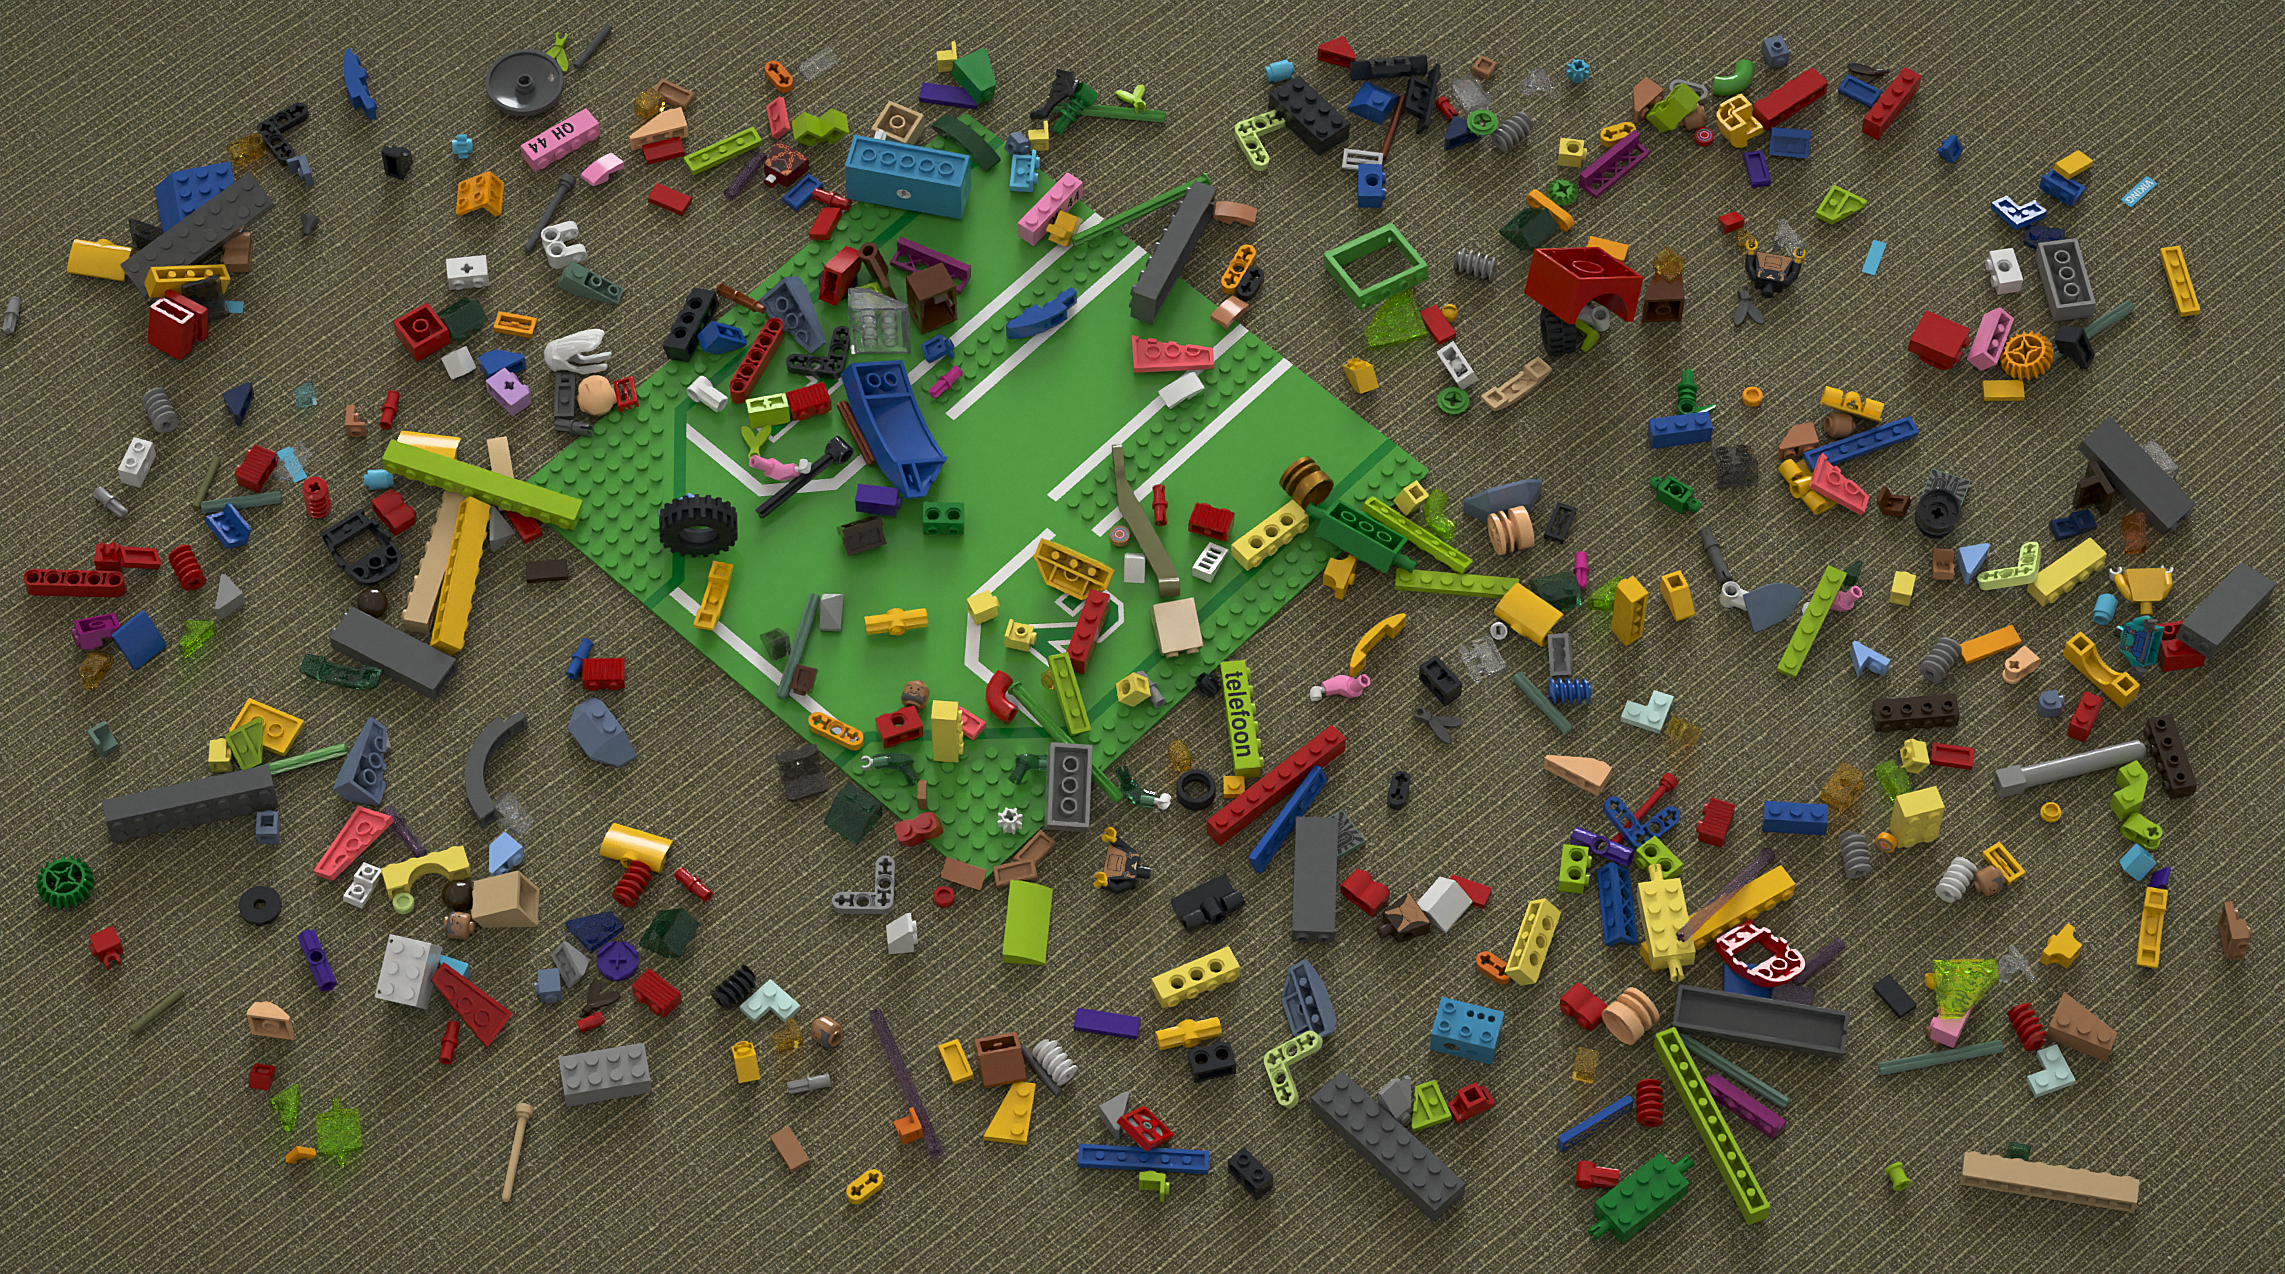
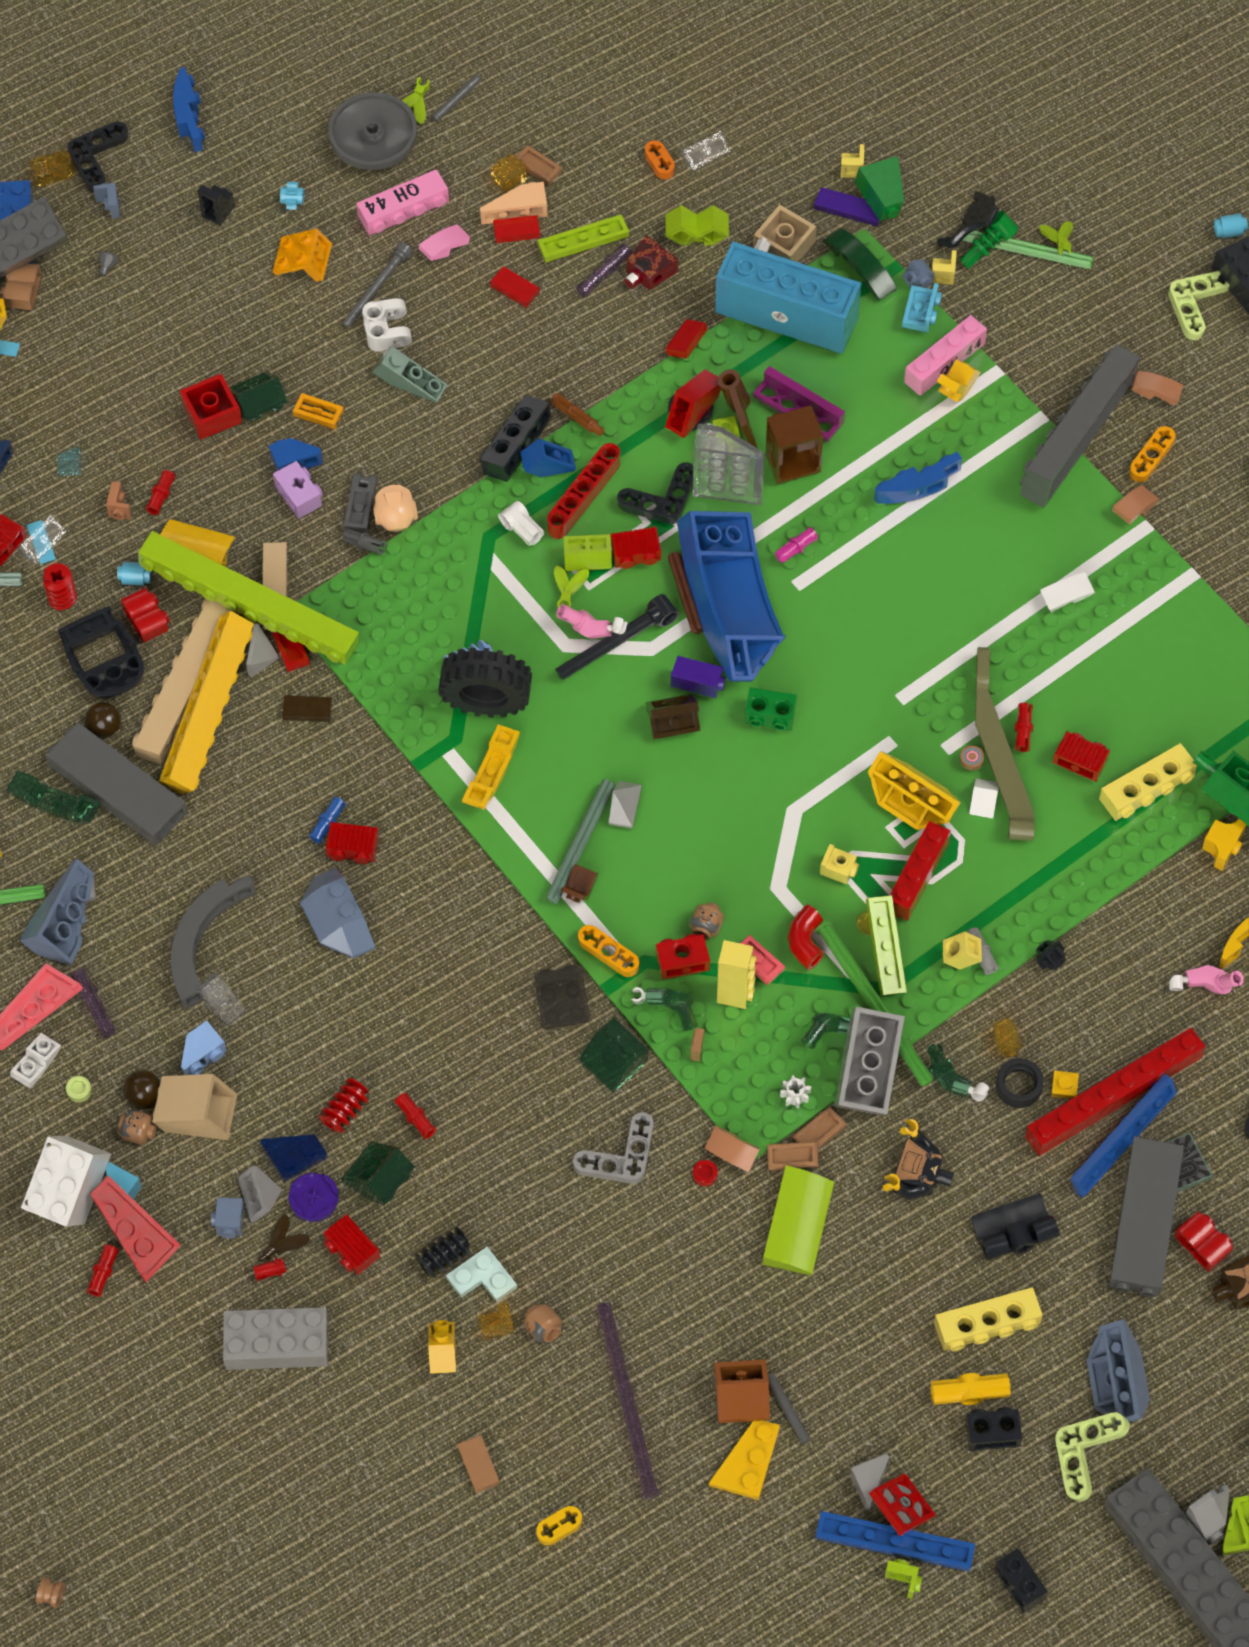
camera: 10 degrees right, 5 degrees up
(449, 863) = (80, 1057): light yellow arch -> none
(458, 362) = (247, 447): white panel -> none
(467, 272) = (274, 343): white brick -> none
(523, 1113) = (173, 1373): tan piece -> none
(568, 348) = (376, 448): white hair -> none
(621, 405) = (430, 521): red tile -> none
(632, 844) = (356, 1059): yellow panel -> none
(776, 643) = (555, 834): clear smoke slope -> none
(778, 118) = (651, 208): coral plate -> none
(793, 305) = (635, 433): sand blue wedge -> none
(801, 192) = (666, 298): blue tile -> none
(809, 1084) = (512, 1385): light grey axle -> none
(831, 199) = (698, 311): red pin -> none
(896, 621) = (697, 827): yellow piece -> none
(902, 935) = (648, 1216): white slope -> none
(909, 1128) = (621, 1458): orange panel -> none
(923, 827) = (681, 1089): red brick -> none
(937, 348) = (793, 503): blue bracket -> none
(955, 1062) = (689, 1382): yellow tile -> none
(982, 607) = (800, 823): light yellow brick -> none
(1054, 1061) = (806, 1402): white piece -> none
(1107, 1023) = (875, 1361): dark purple tile -> none
(1136, 212) = (1045, 371): bright green axle -> none
(1160, 356) = (1050, 548): coral wing -> none
(1176, 627) = (1023, 881): tan slope -> none
(1203, 573) = (1063, 817): white slope -> none
(1240, 720) = (1083, 1003): lime brick -> none
(1253, 285) = (1160, 471): black beam -> none
(1306, 482) = (1199, 725): pearl gold wheel -> none

